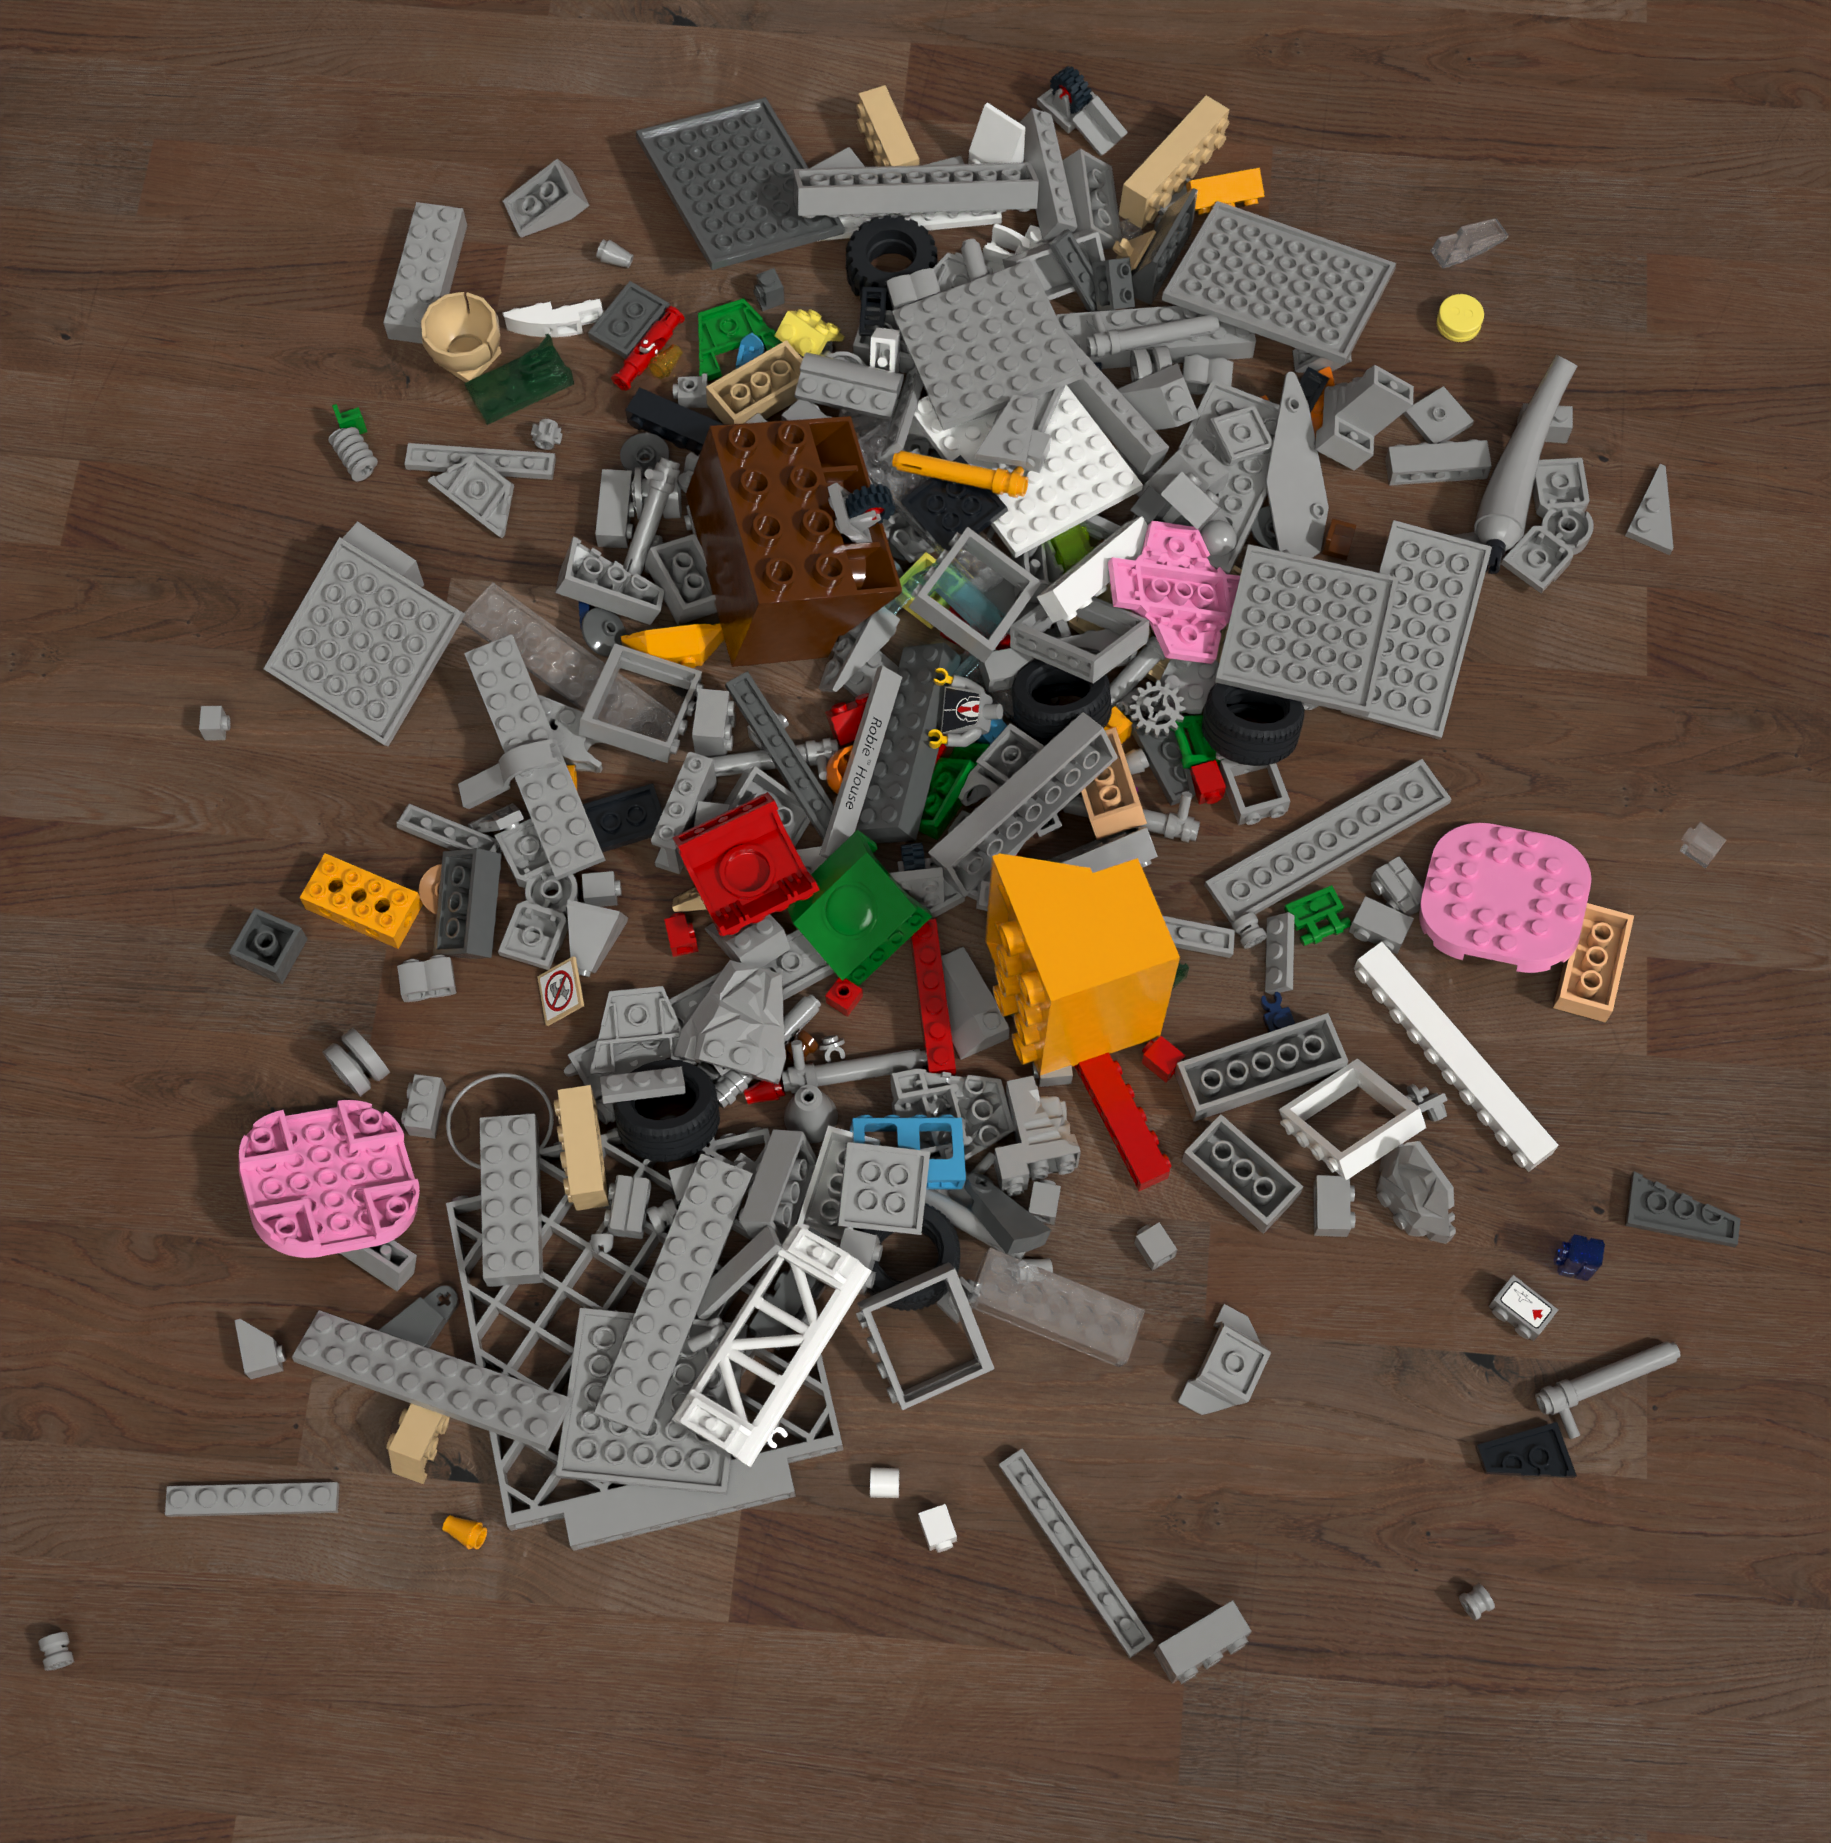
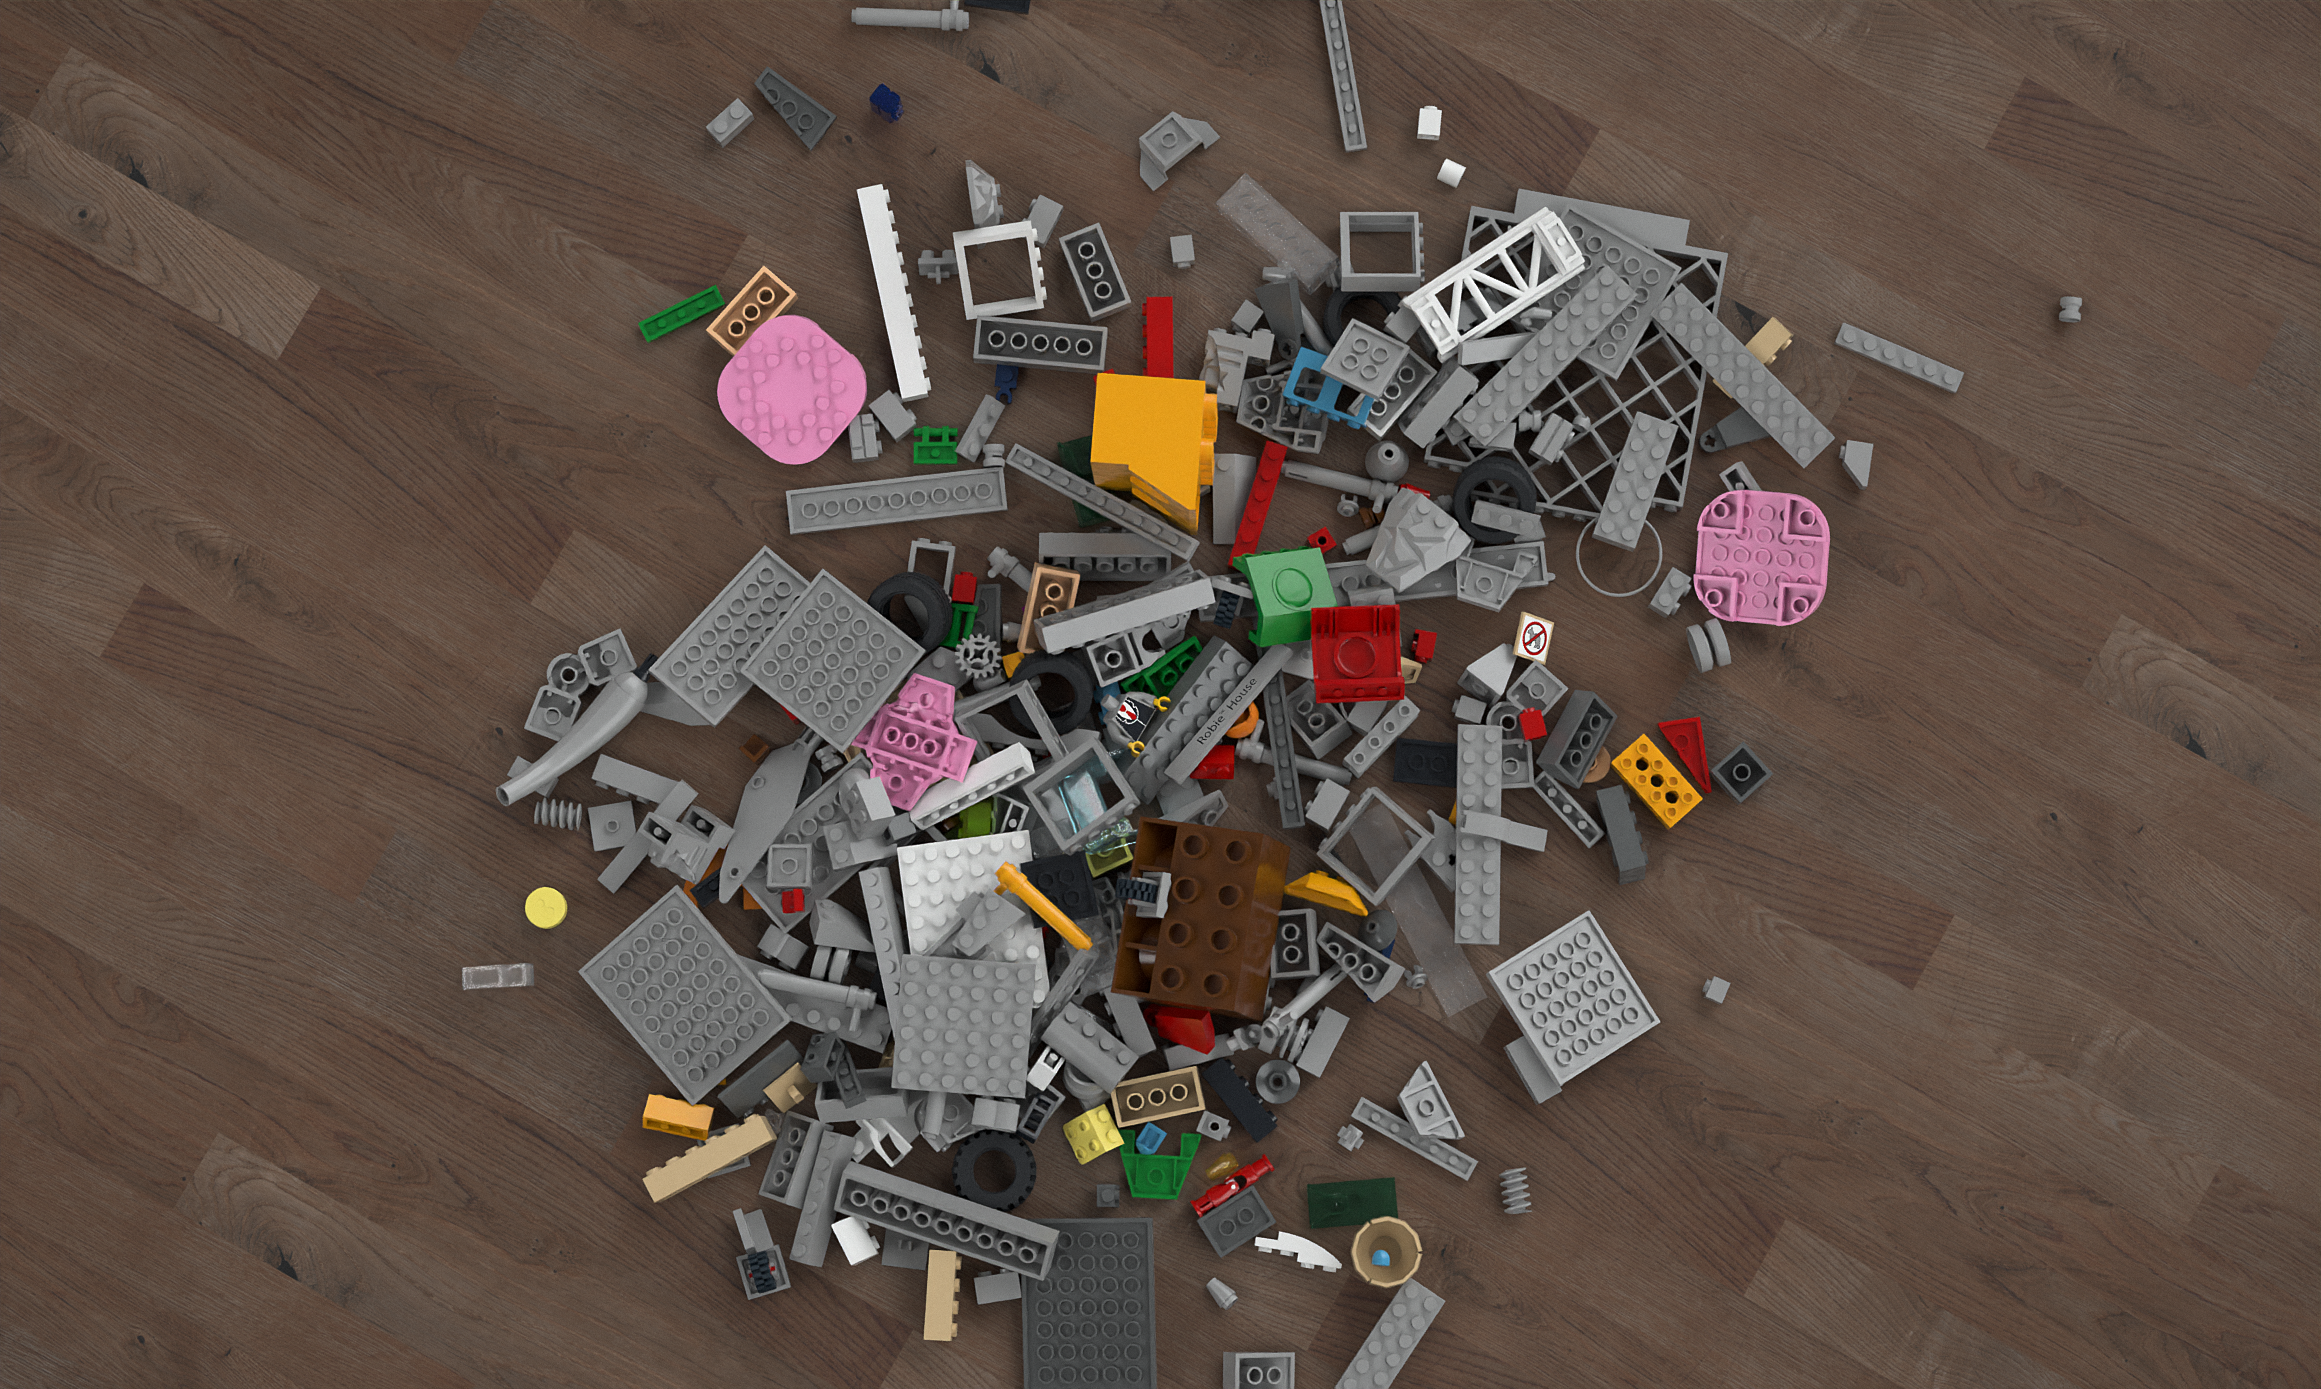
camera: 155 degrees left, 15 degrees up
(343, 961) = (1688, 743): none -> red wing
(350, 418) = (1506, 1227): green panel -> none
(378, 830) = (1622, 834): none -> dark grey wedge
(426, 979) = (1629, 696): light grey brick -> none
(460, 309) = (1381, 1258): none -> dark azure hinge
(467, 1532) = (1757, 266): light orange cone -> none
(504, 818) = (1525, 800): light grey wing -> none
(521, 890) = (1532, 724): none -> red brick
(543, 605) = (1417, 980): none -> light grey plate
(582, 1146) = (1567, 494): tan brick -> none
(1217, 401) = (793, 901): none -> red bracket
(1393, 436) = (639, 845): none -> light grey tile
(1499, 399) = (558, 814): none -> light grey piece
(1522, 1308) = (944, 90): brick -> none
(1653, 519) = (493, 657): light grey wing -> none
(1667, 934) = (681, 314): none -> green plate
(1702, 844) = (616, 370): clear brick -> none
(1740, 1161) = (730, 123): none -> light grey brick

